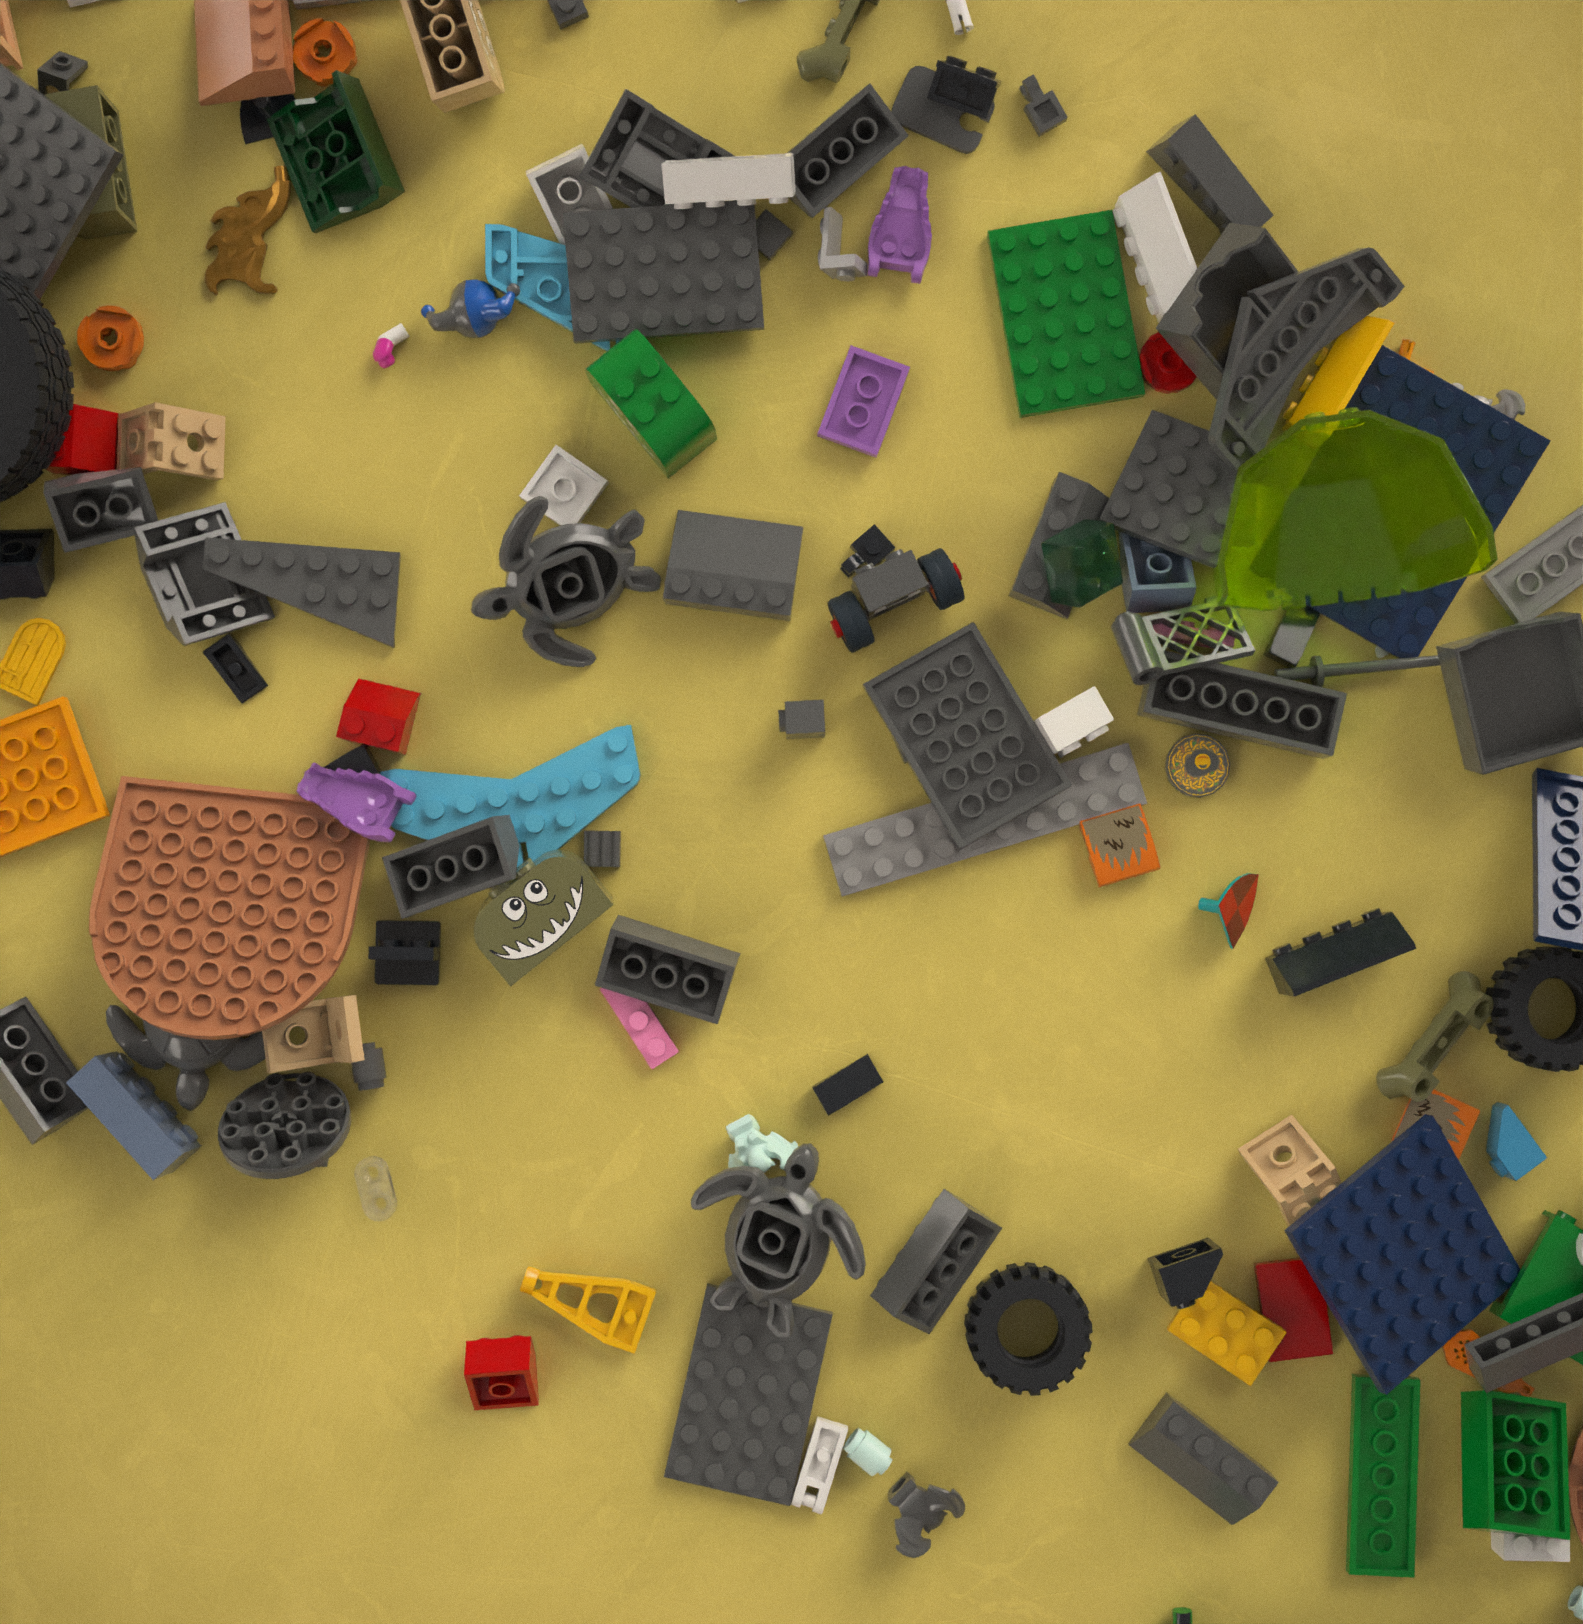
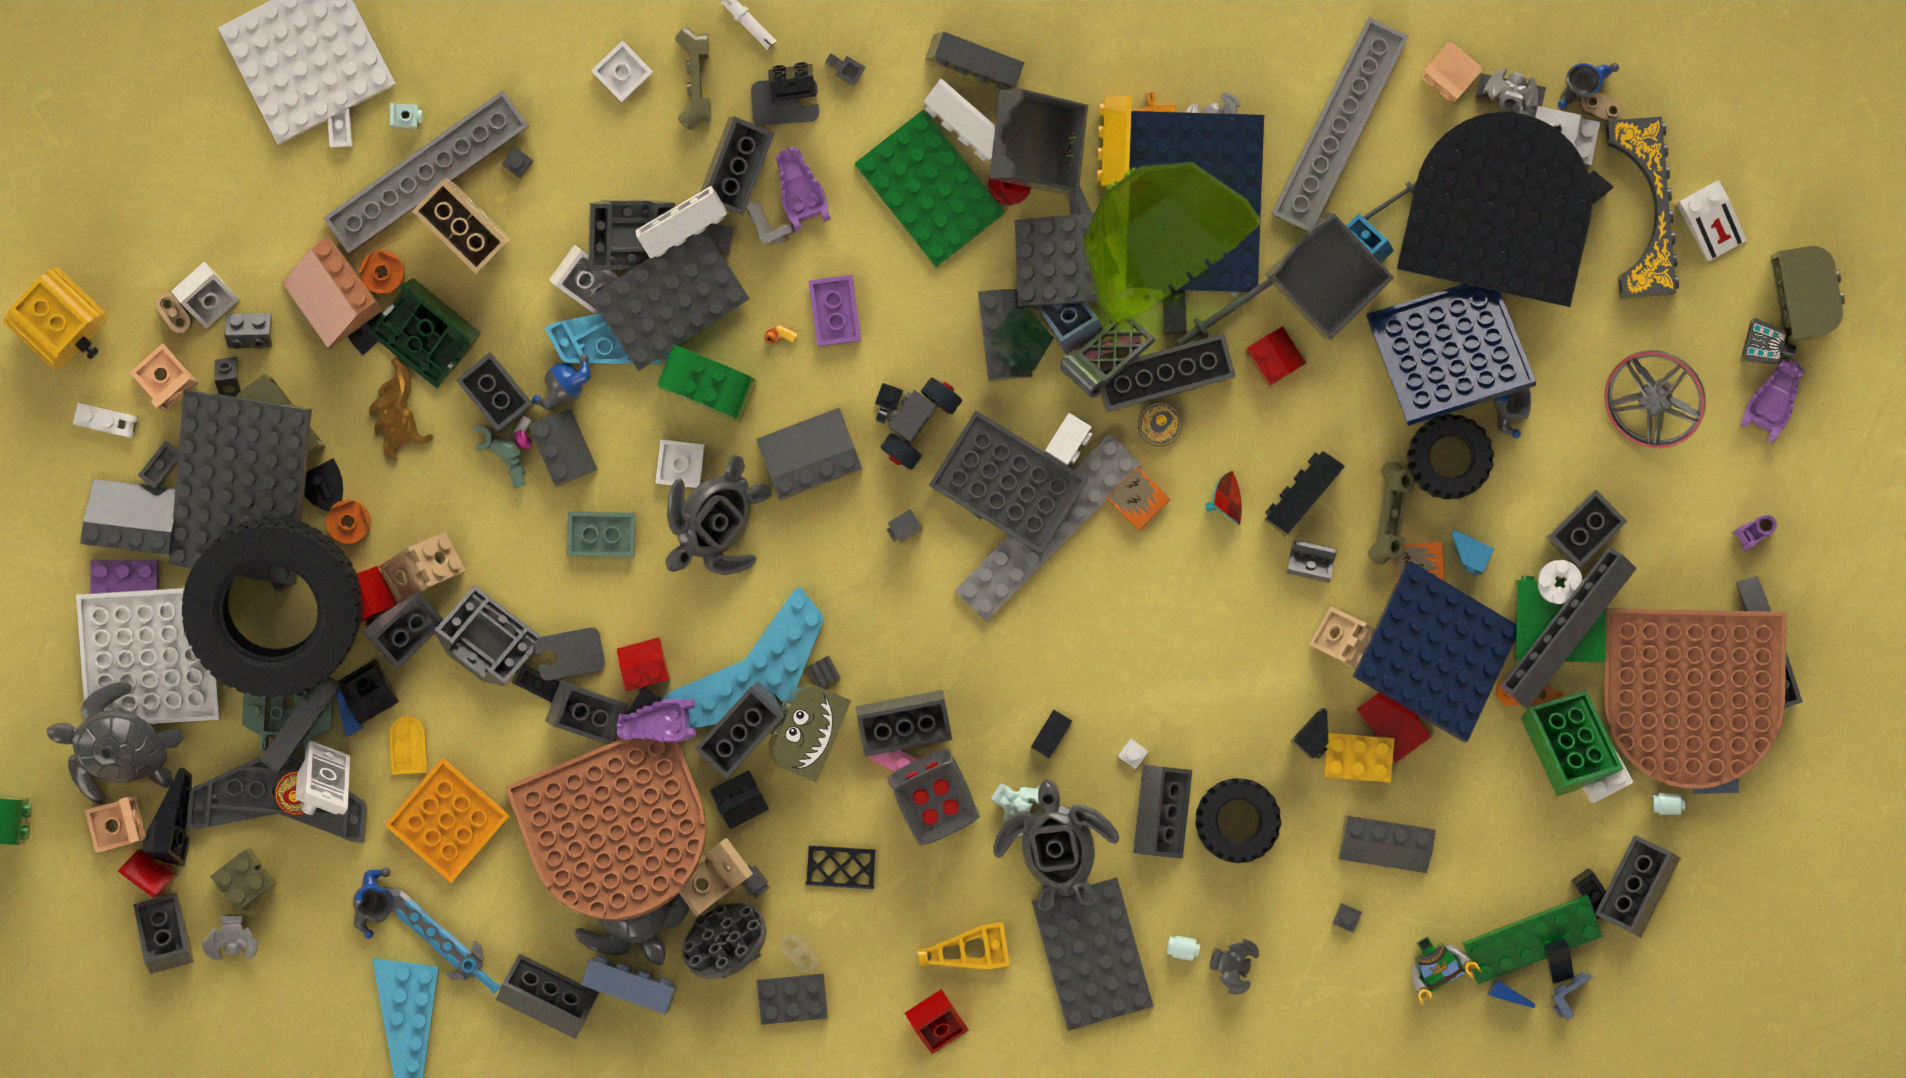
camera: 30 degrees left, 0 degrees up
(106, 276) = (324, 485): none -> black shield
(118, 35) = (248, 330): none -> dark grey bracket
(273, 737) = (585, 712): none -> dark grey slope
(302, 656) = (575, 653): none -> dark grey piece
(329, 582) = (566, 600): dark grey wing -> none
(336, 1242) = (792, 999): none -> dark grey plate
(355, 353) = (507, 451): none -> sand green piece
(379, 273) = (495, 392): none -> dark grey brick
(417, 524) = (601, 534): none -> sand green plate
(427, 389) = (563, 447): none -> dark grey slope
(464, 1117) = (828, 882): none -> black window
(651, 1088) = (934, 797): none -> dark grey piece
(778, 392) = (778, 333): none -> arm
(819, 1464) = (1158, 971): white plate -> none
(938, 1166) = (1133, 753): none -> white plate
(1099, 1526) = (1347, 917): none -> dark grey plate
(1273, 347) = (1067, 152): dark grey wing -> none
(1299, 1044) = (1311, 561): none -> dark grey bracket
(1383, 1478) = (1500, 793): green plate -> none
(1390, 758) = (1275, 356): none -> red slope

